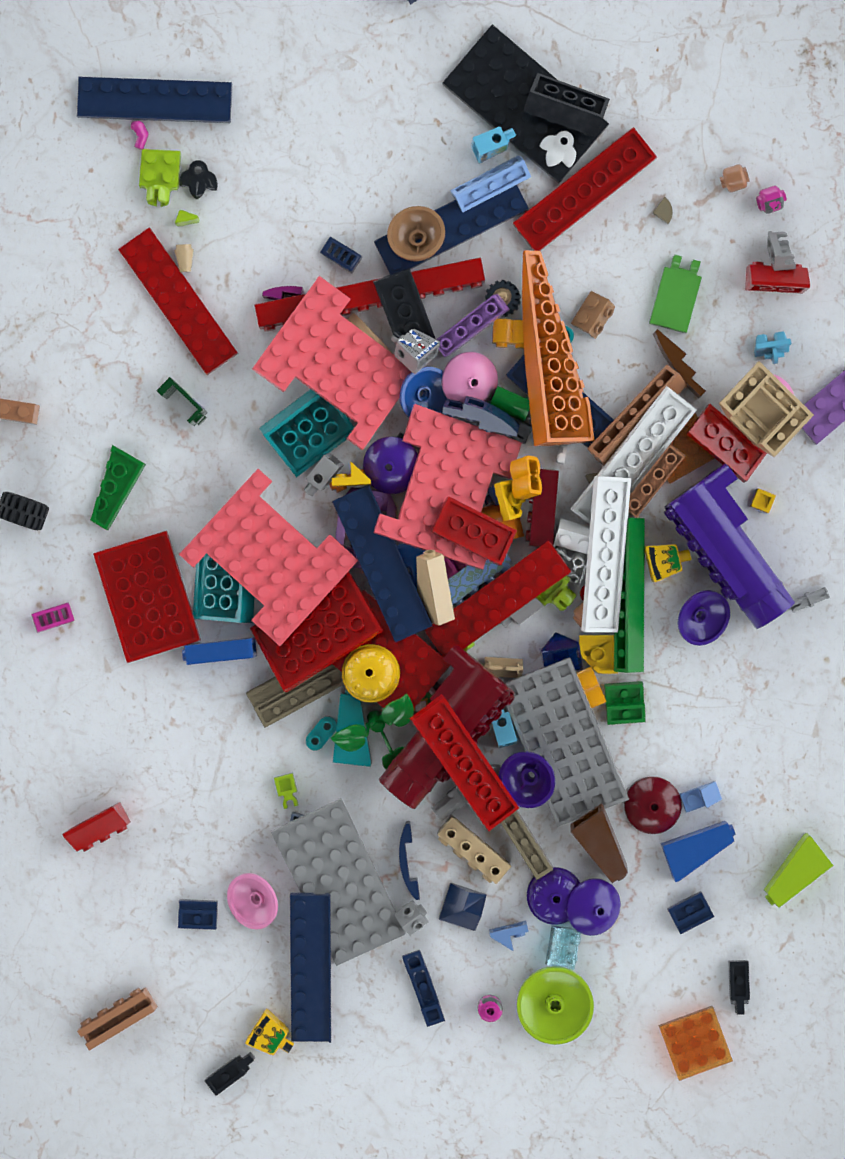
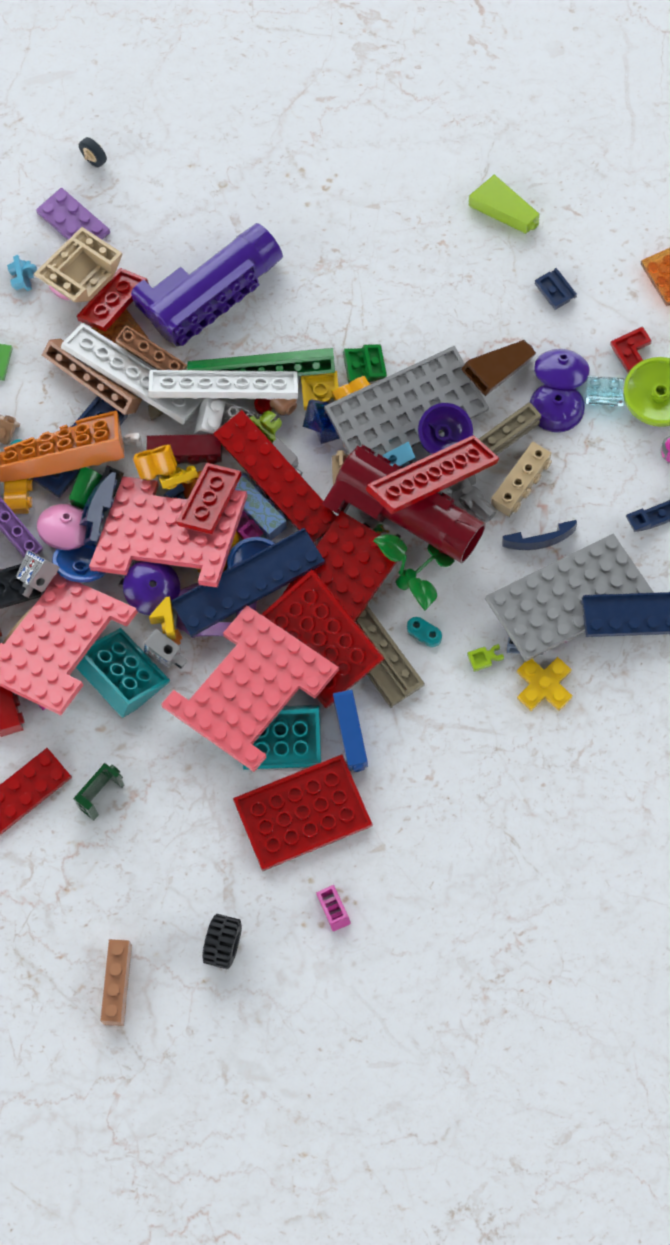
camera: 90 degrees left, 20 degrees down
(97, 828) = (546, 836): red slope -> none
(119, 479) = (187, 853): green wing -> none
(197, 914) = (622, 730): dark blue plate -> none
(252, 901) = (610, 681): bright pink dish -> none
(254, 845) = (544, 684): none -> yellow plate
(349, 714) = (403, 605): teal slope -> none
(384, 676) = (358, 592): yellow hat -> none
(411, 917) = (595, 526): light grey brick -> none
(434, 587) = (265, 529): tan slope -> none
(463, 906) = (579, 484): dark blue slope -> none
(503, 933) = (599, 442): medium blue slope -> none
(613, 977) = (627, 346): none -> red plate
(645, 794) = (467, 338): dark red dish -> none
(665, 560) = (227, 340): yellow torso -> none
(674, 357) = (32, 352): reddish brown slope -> none
(695, 848) = (495, 290): blue slope -> none
(701, 796) = (446, 292): medium blue slope -> none
(709, 622) = (276, 301): dark purple dish -> none
(739, 984) = (617, 242): black hinge -> none
(762, 500) = (164, 267): yellow tile -> none
(810, 599) = (249, 215): light grey pin -> none

